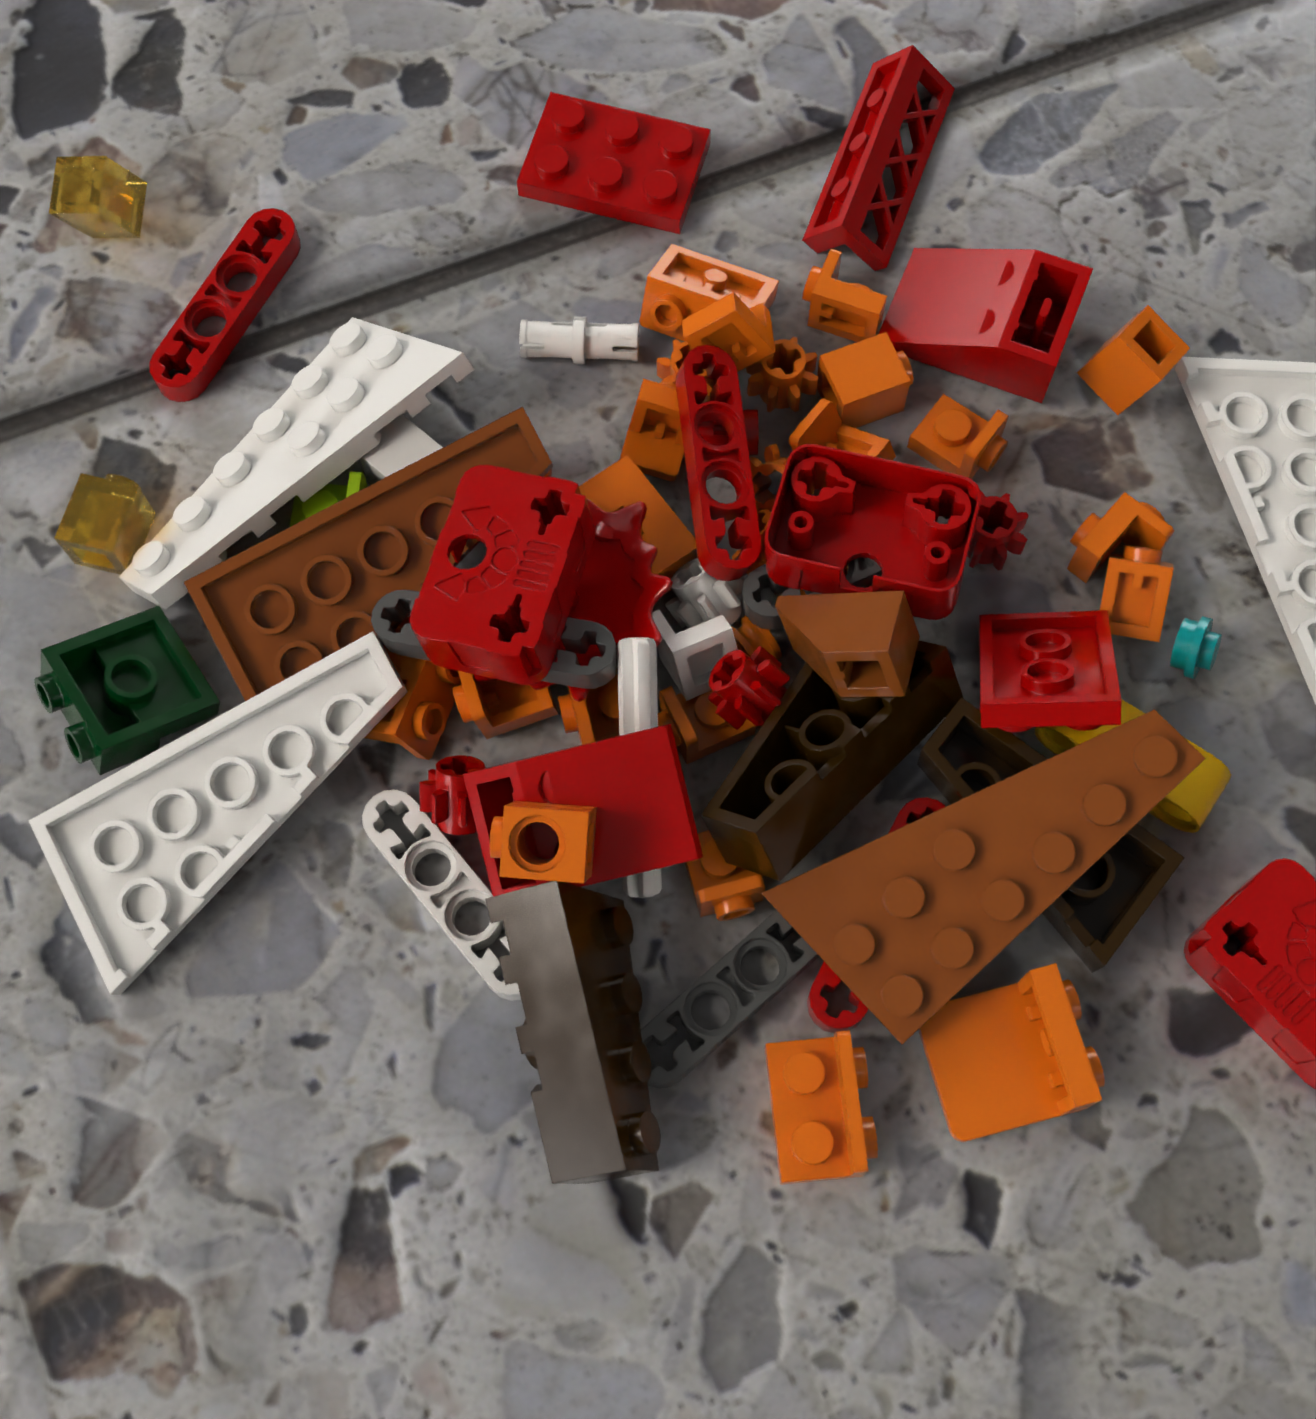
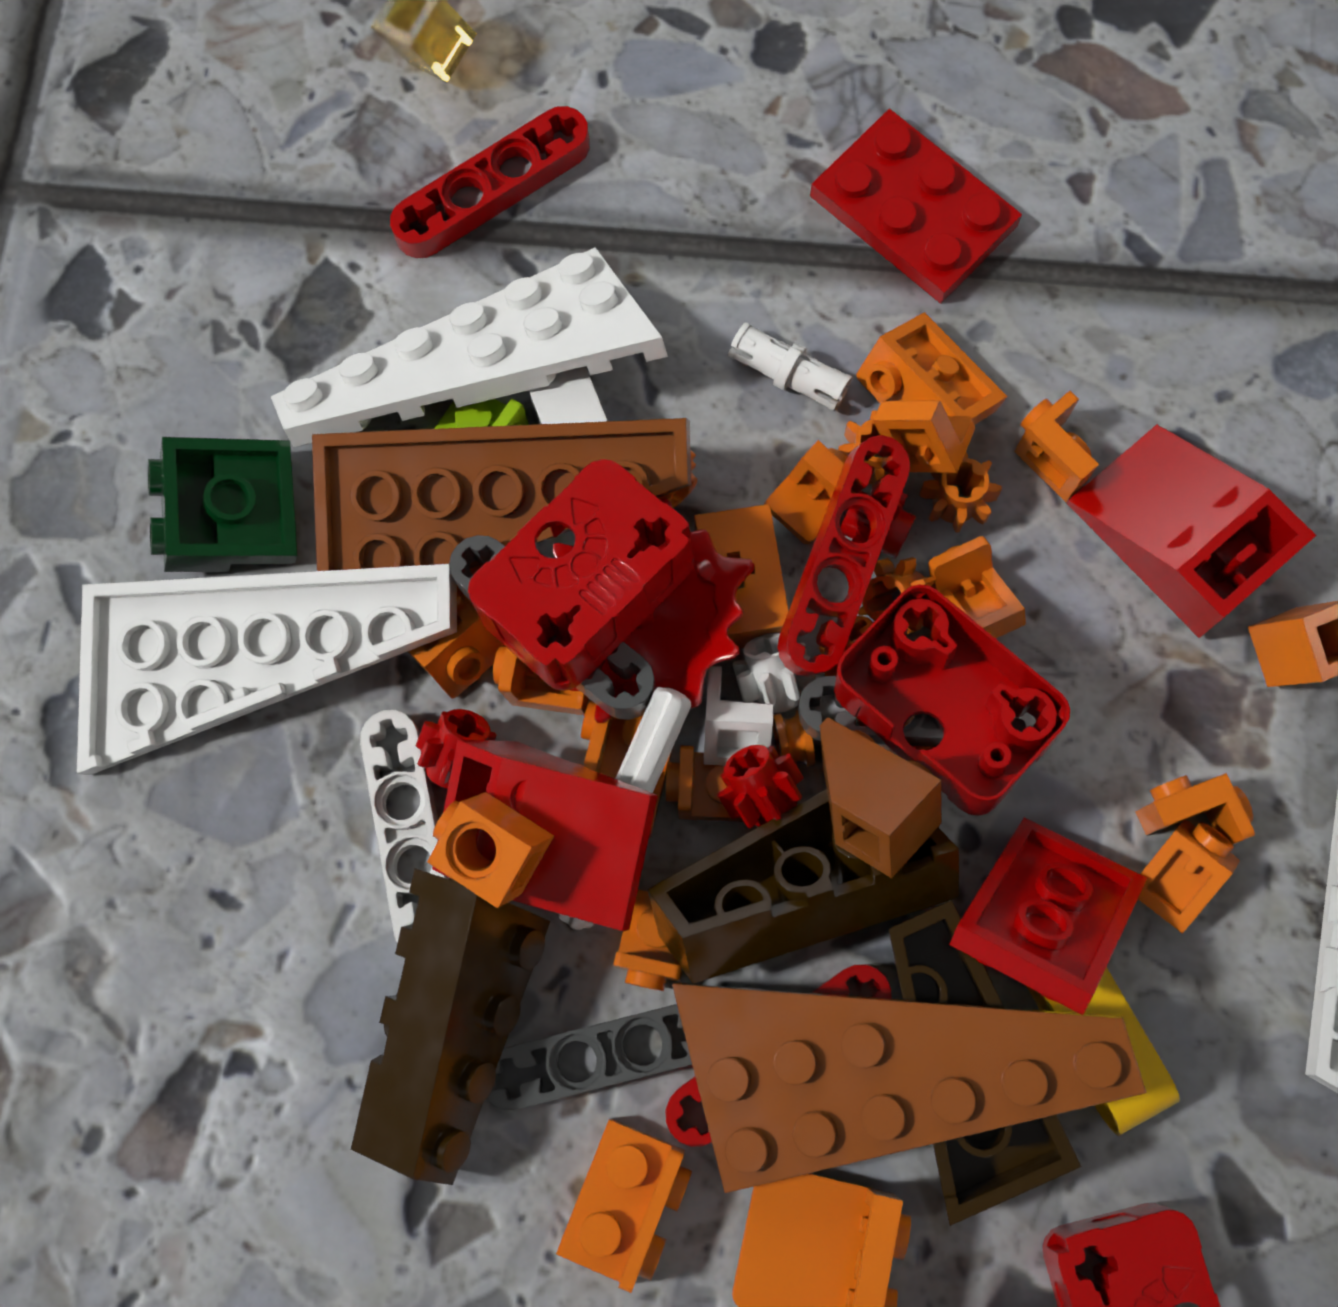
camera: 30 degrees right, 5 degrees up
(105, 522) = (282, 340): clear yellow brick -> none
(865, 380) = (1036, 535): orange brick -> none
(871, 146) = (1158, 306): red fence -> none
(959, 438) = (1098, 635): orange bracket -> none
(1003, 518) = (1088, 756): red gear -> none
(1195, 646) = (1215, 956): teal plate -> none

